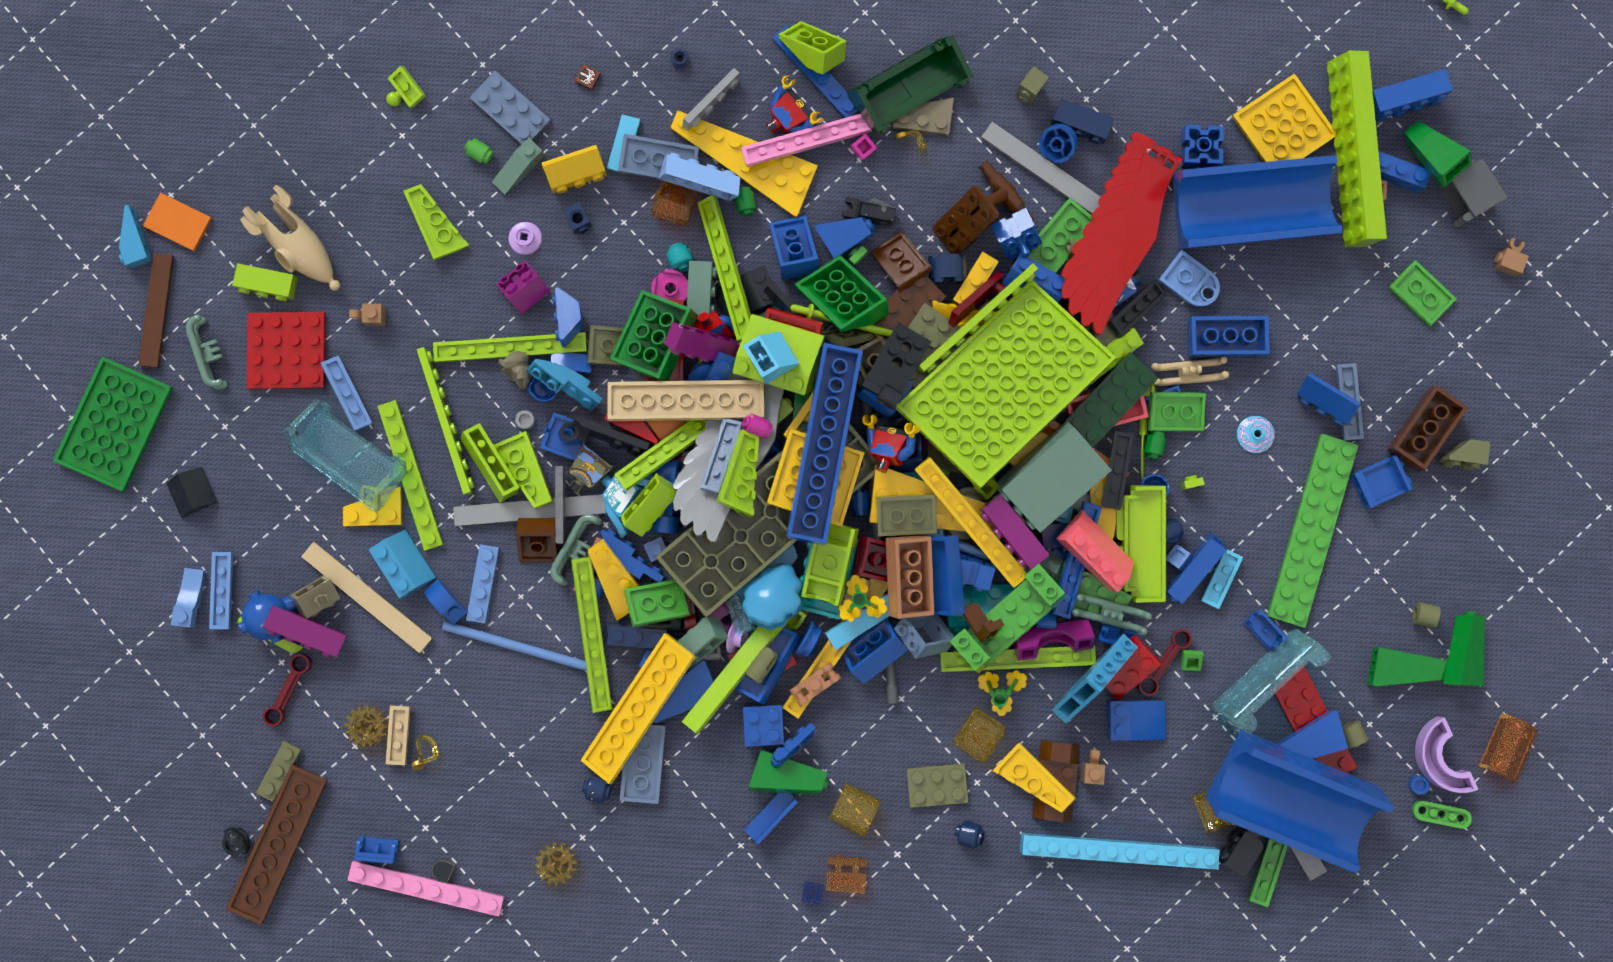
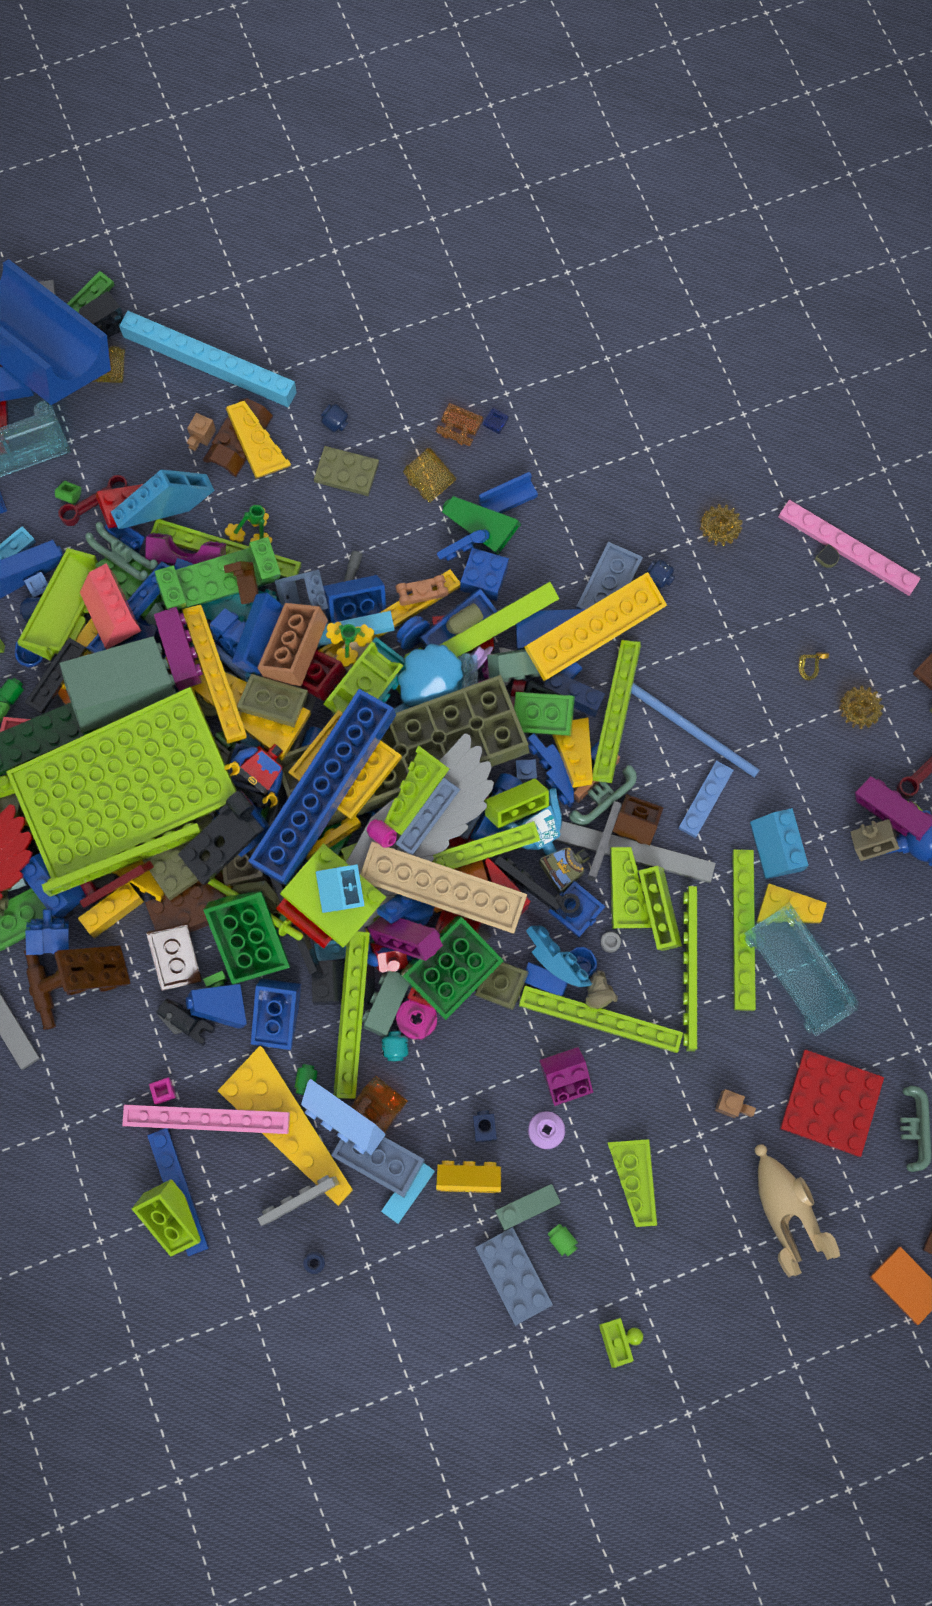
camera: 160 degrees left, 10 degrees down
(265, 282) = (833, 1181): lime brick -> none
(346, 393) = (783, 1033): medium blue plate -> none
(367, 597) = (824, 827): tan tile -> none
(376, 849) = (885, 594): blue hinge -> none
(398, 735) = (833, 688): tan plate -> none
(445, 602) = (749, 793): blue brick -> none
(567, 317) = (531, 1025): slope -> none
(587, 77) = (419, 1280): copper tile -> none
(789, 111) = (221, 1156): torso -> none
(910, 83) = (85, 1139): dark green windscreen -> none
(920, 139) = (104, 1086): clear yellow piece -> none
(928, 118) = (86, 1100): dark tan wing -> none
(948, 268) = (131, 931): dark blue brick -> none
(979, 735) = (289, 498): clear yellow slope -> none
(1136, 720) = (142, 458): blue slope -> none
(1142, 431) = (15, 710): lime piece -> none

